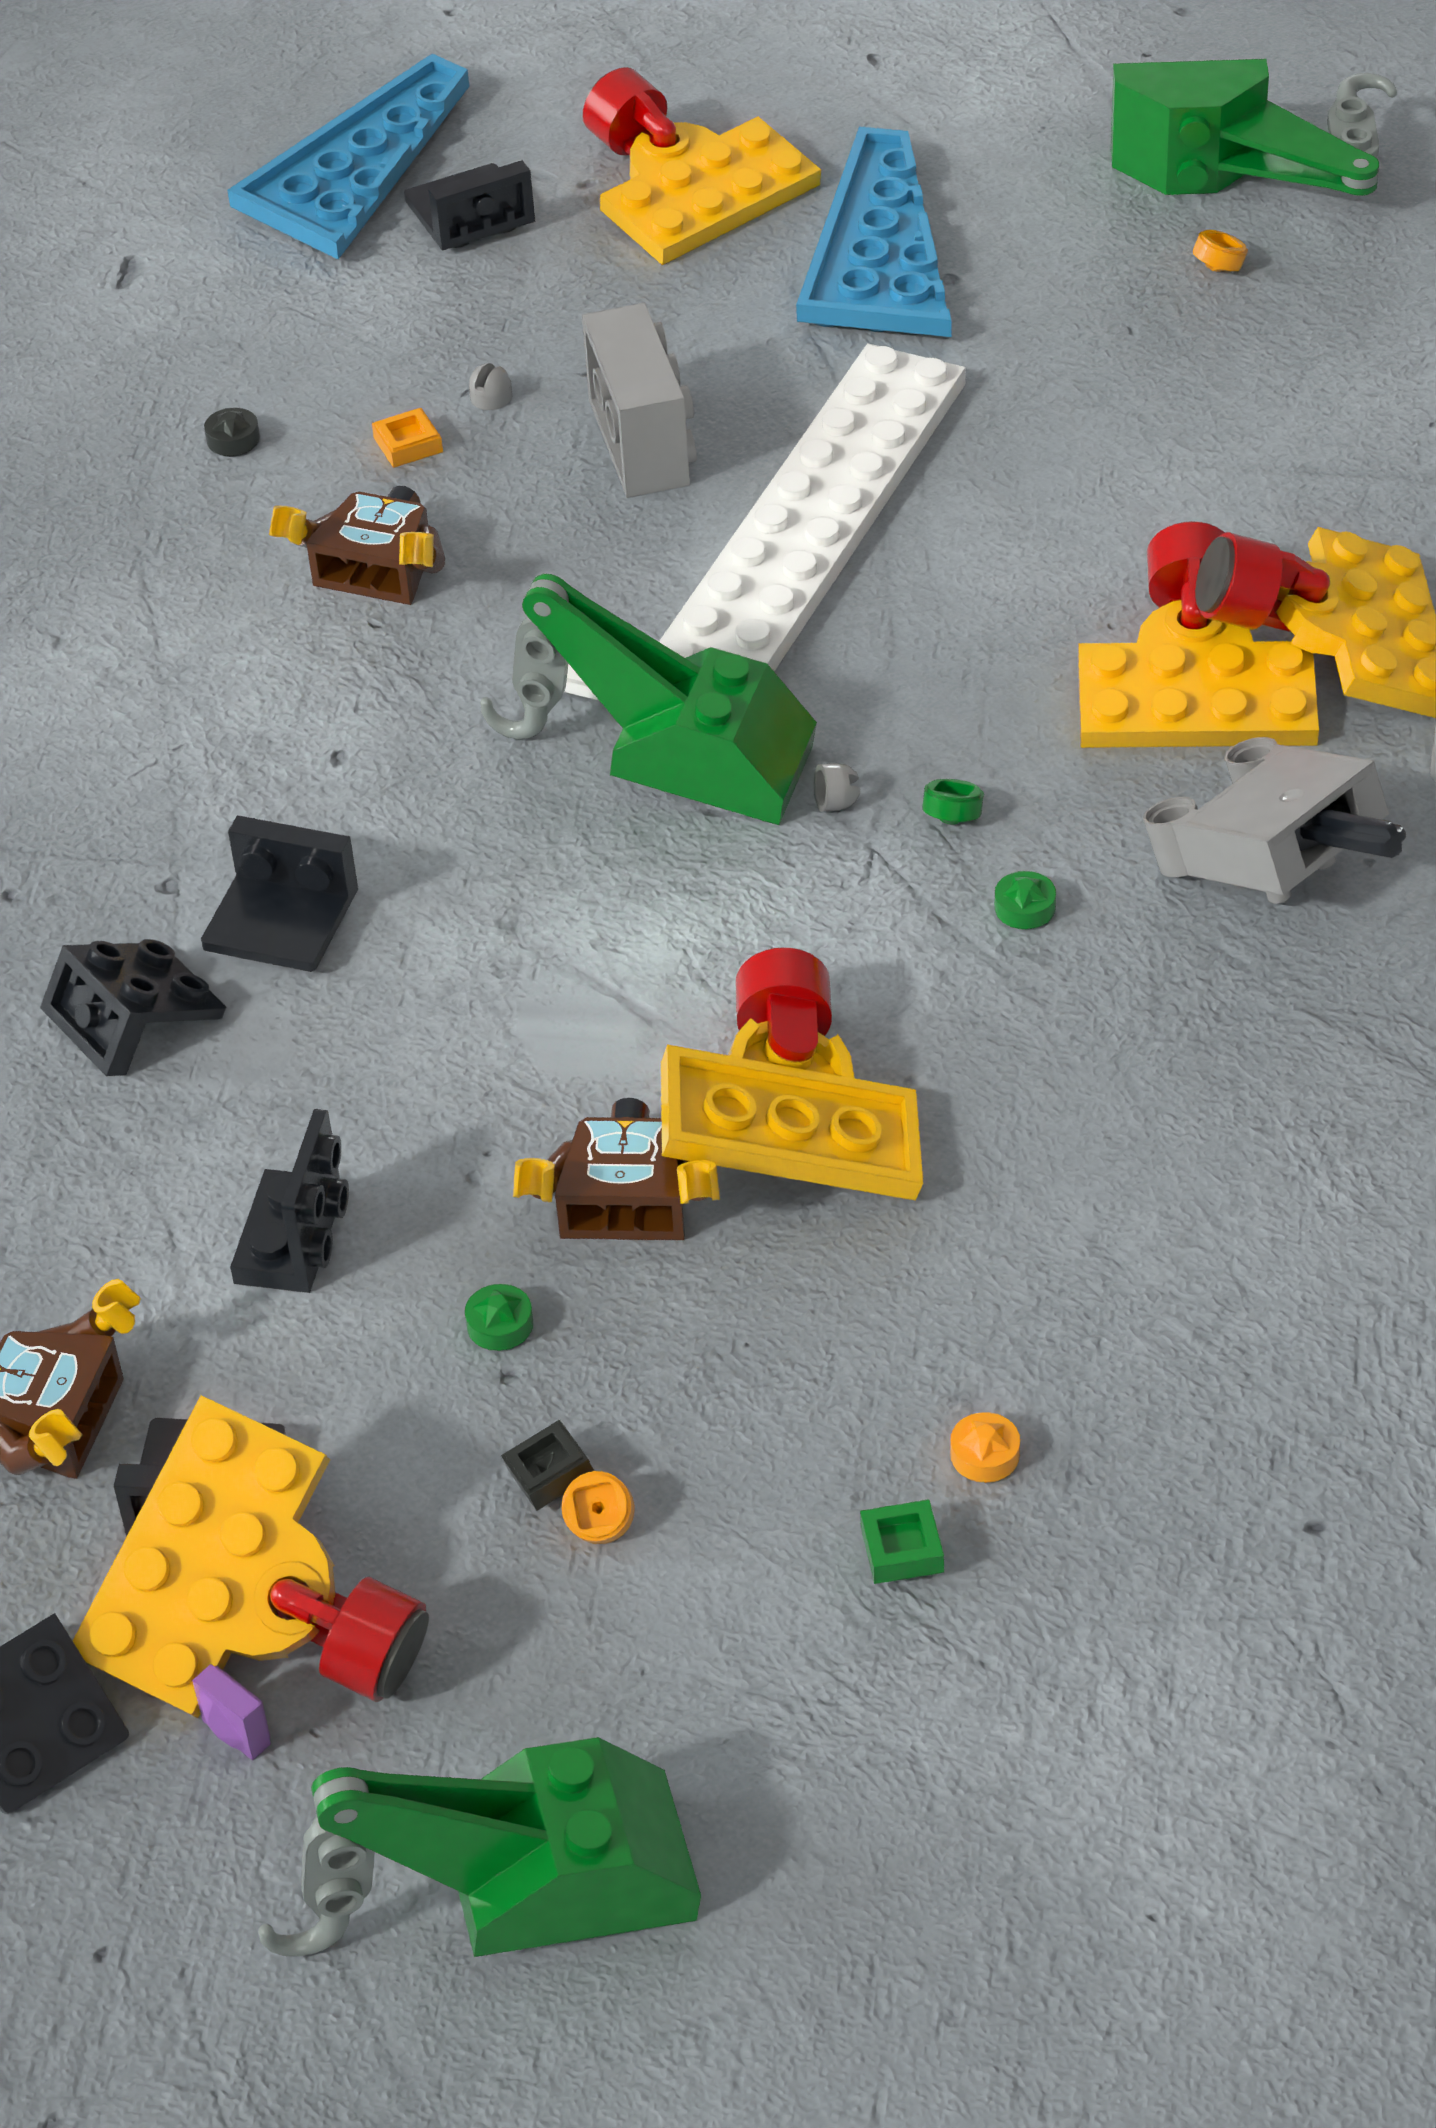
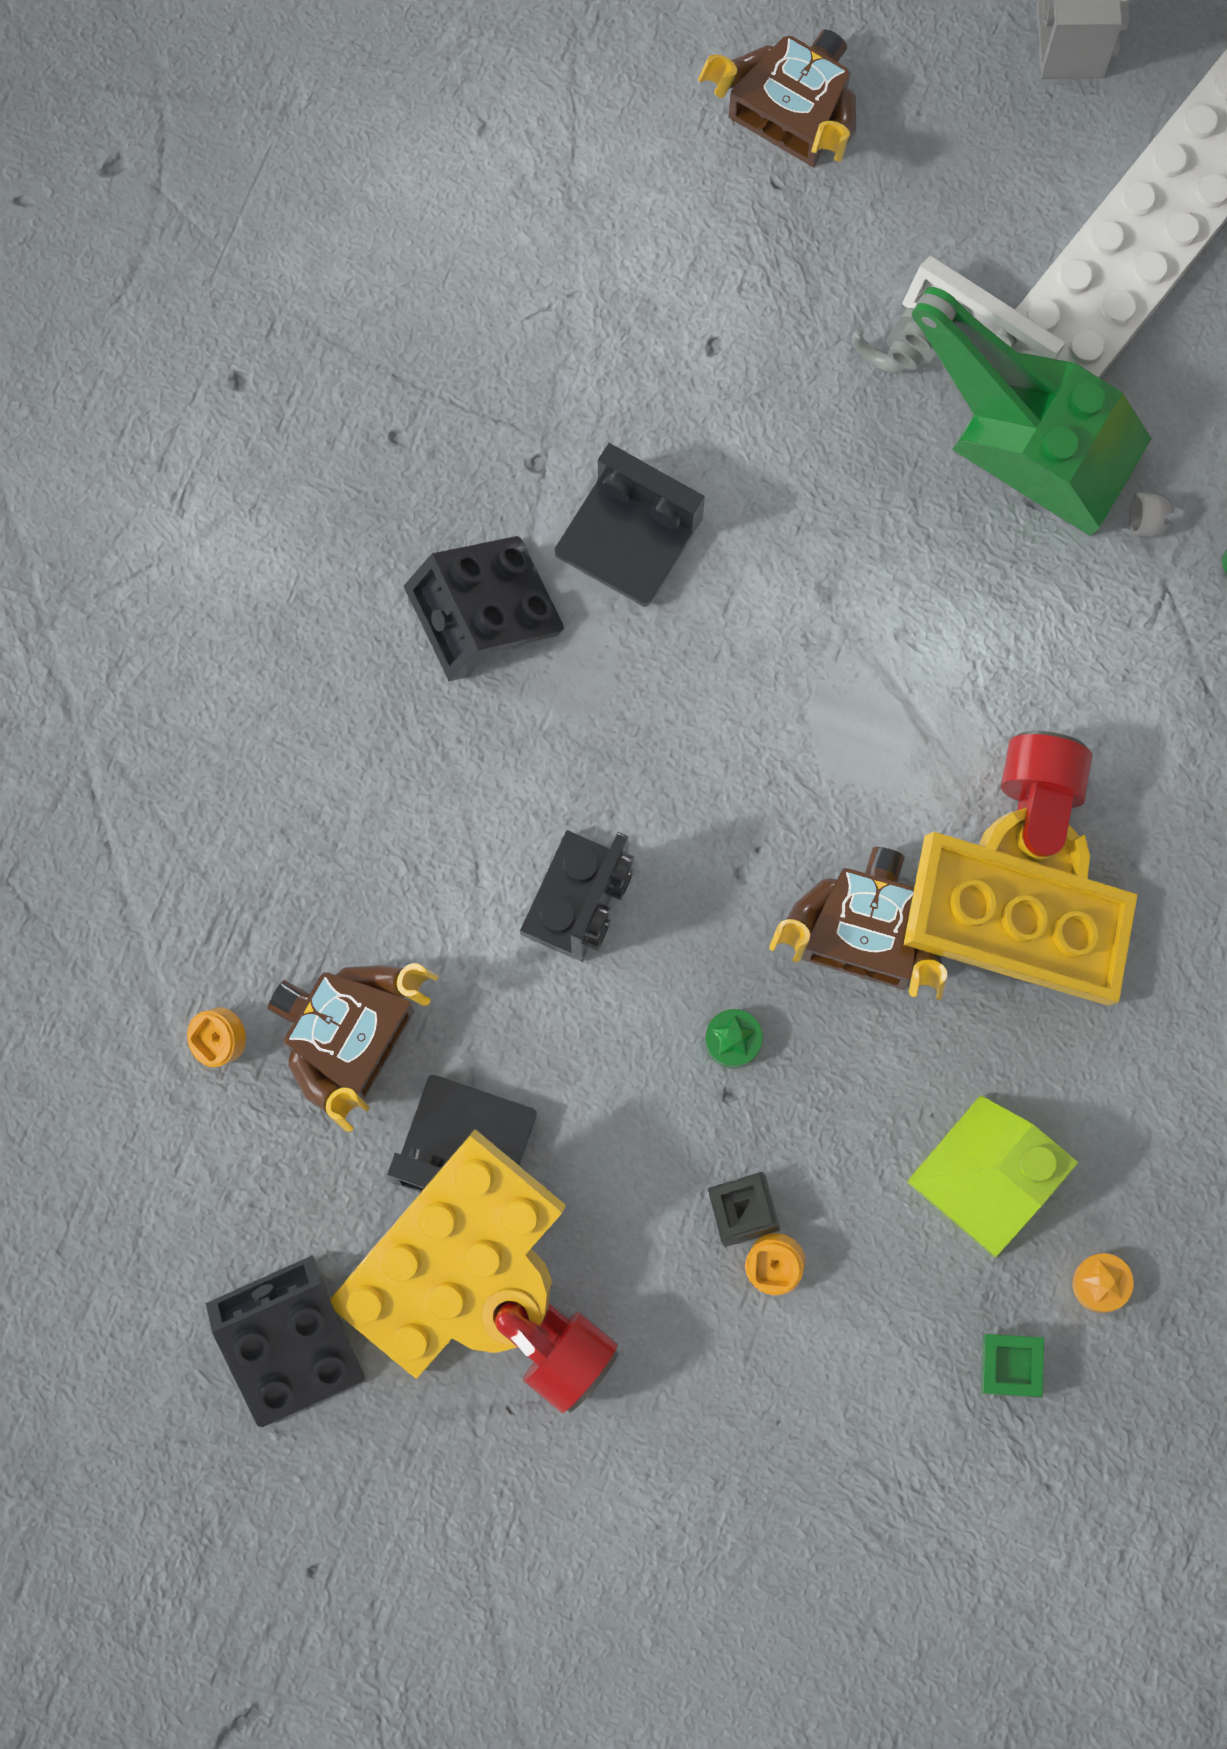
camera: 10 degrees right, 30 degrees up
(232, 1711) = (445, 1392): medium lavender tile -> none
(539, 1848) = (657, 1607): green slope -> none
(833, 1370) = (992, 1173): none -> lime slope

